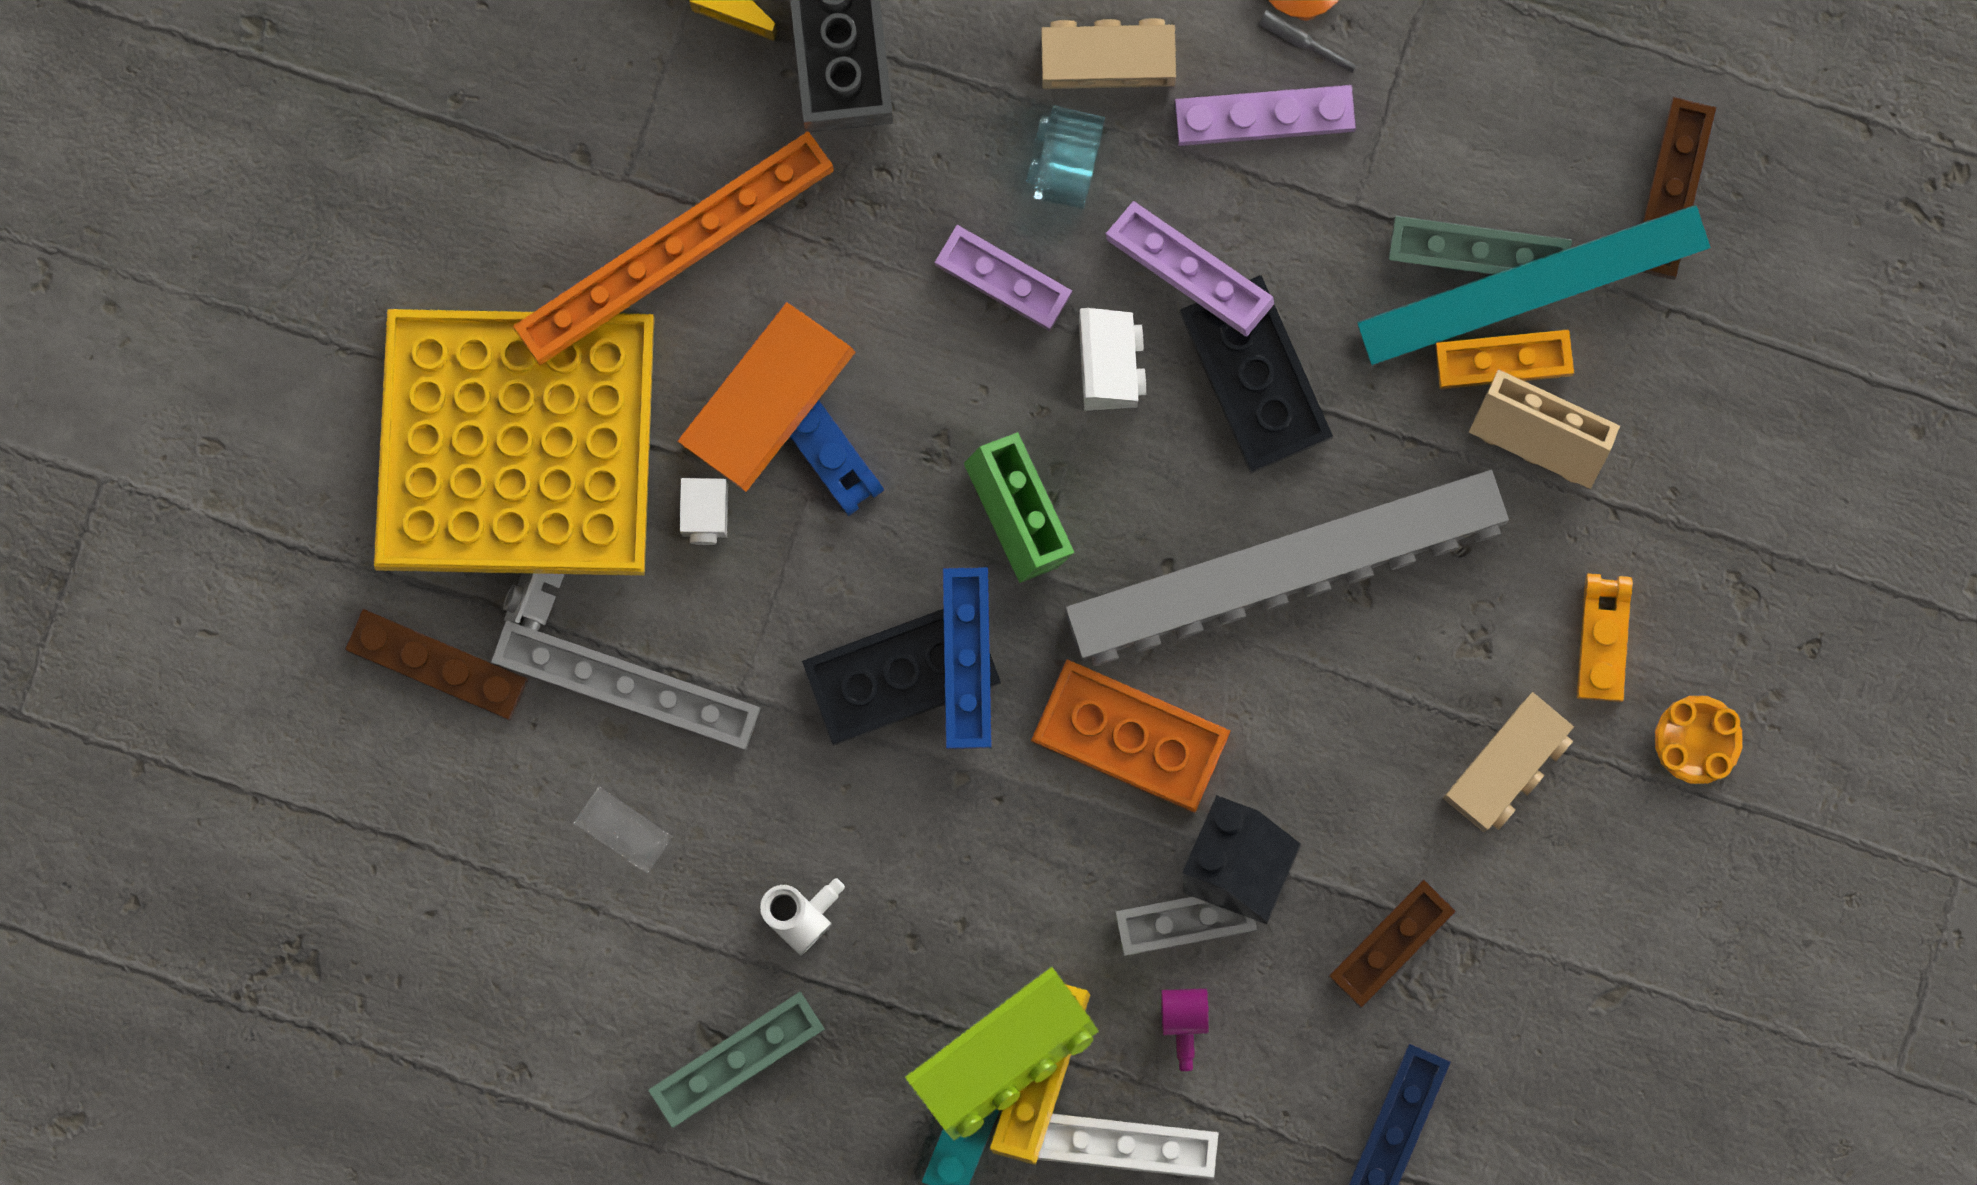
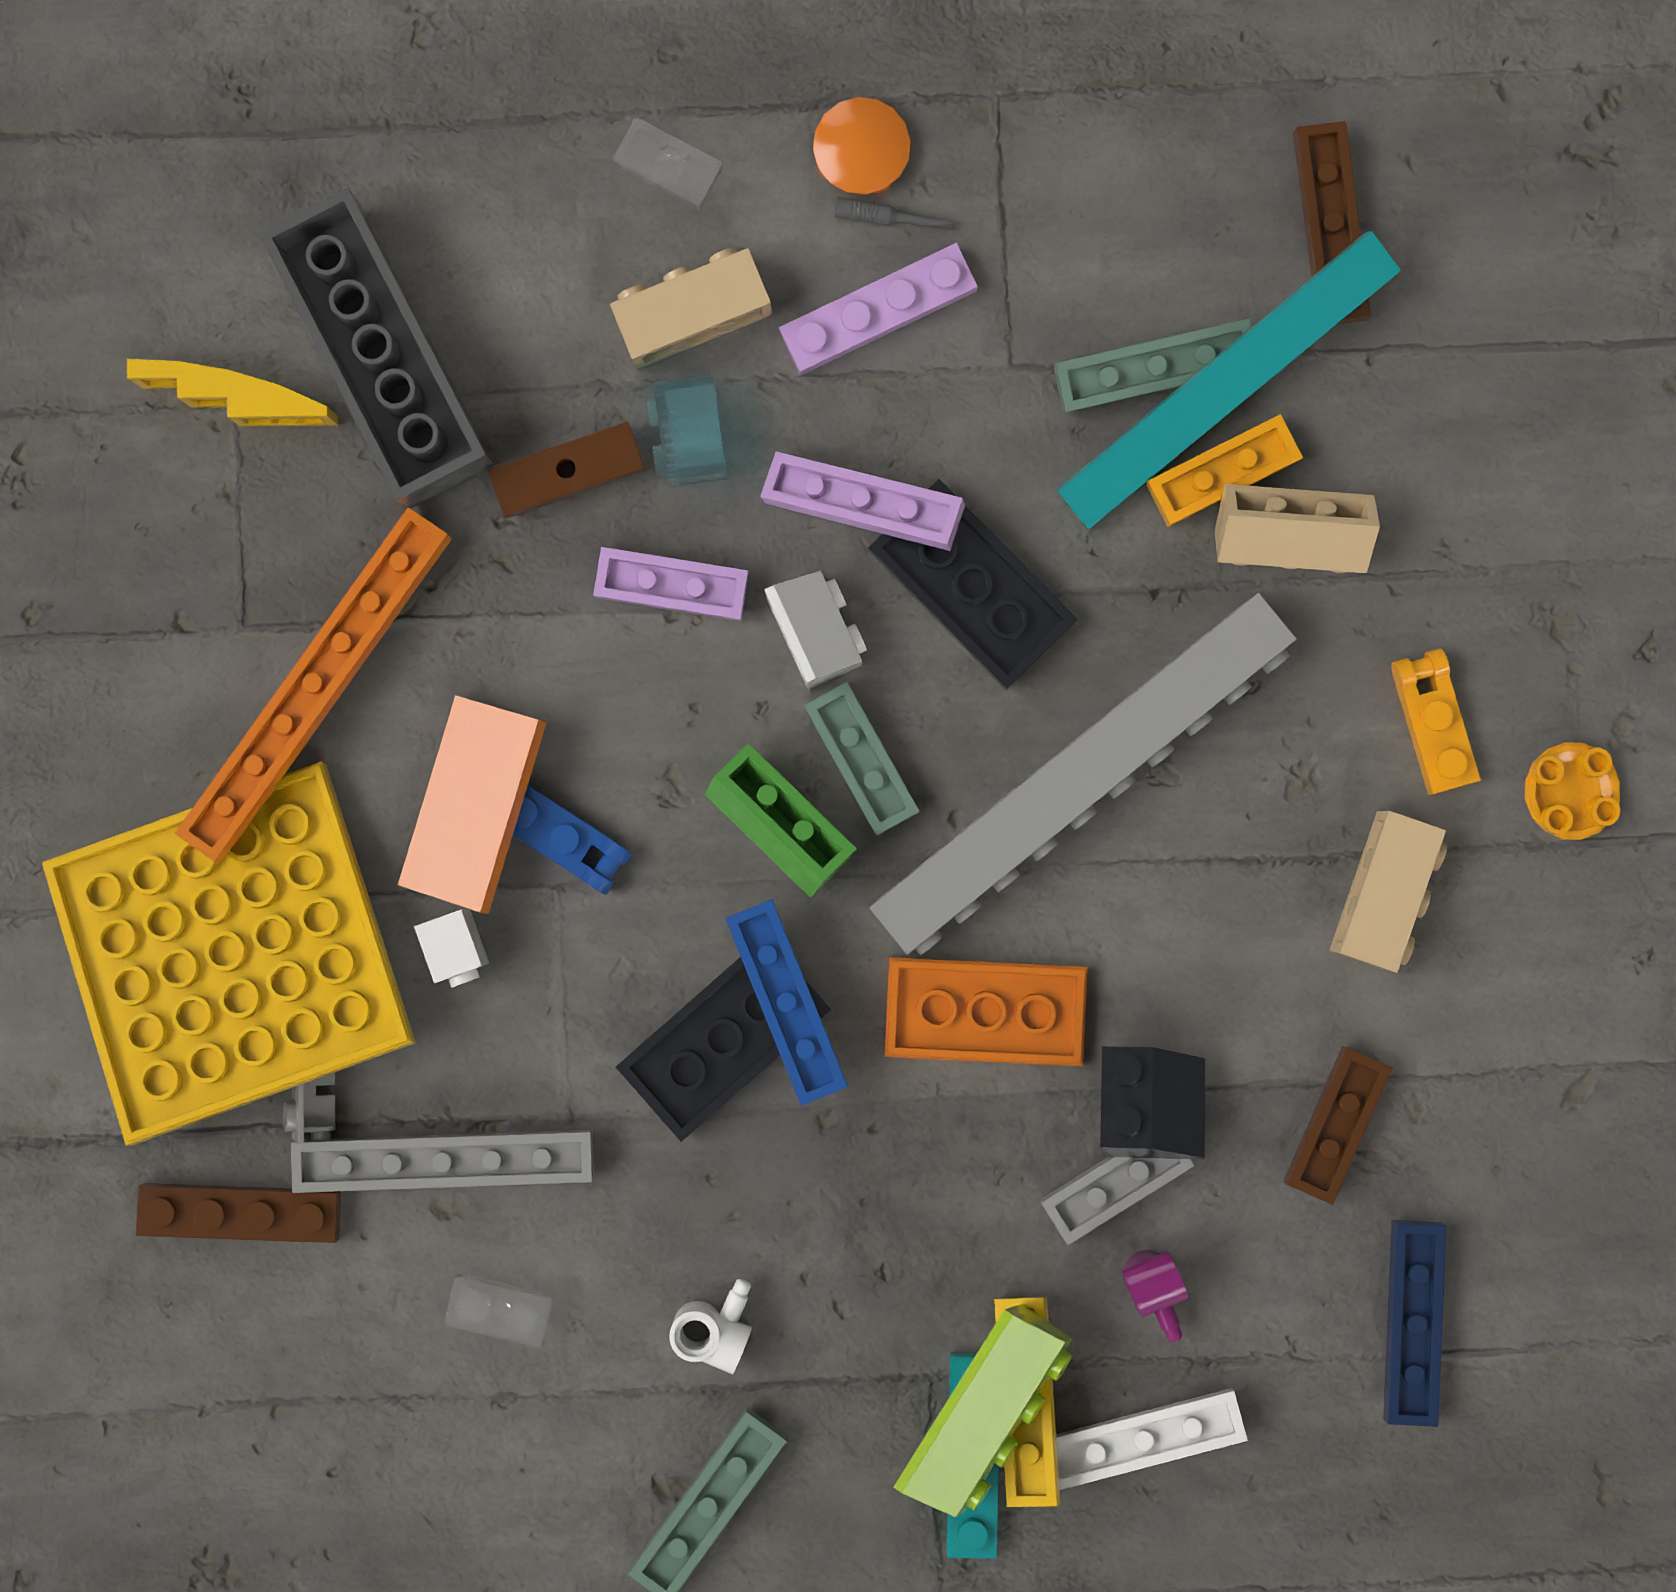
camera: 20 degrees left, 5 degrees up
(923, 147) = (537, 480): none -> reddish brown tile
(1107, 483) = (861, 758): none -> sand green plate

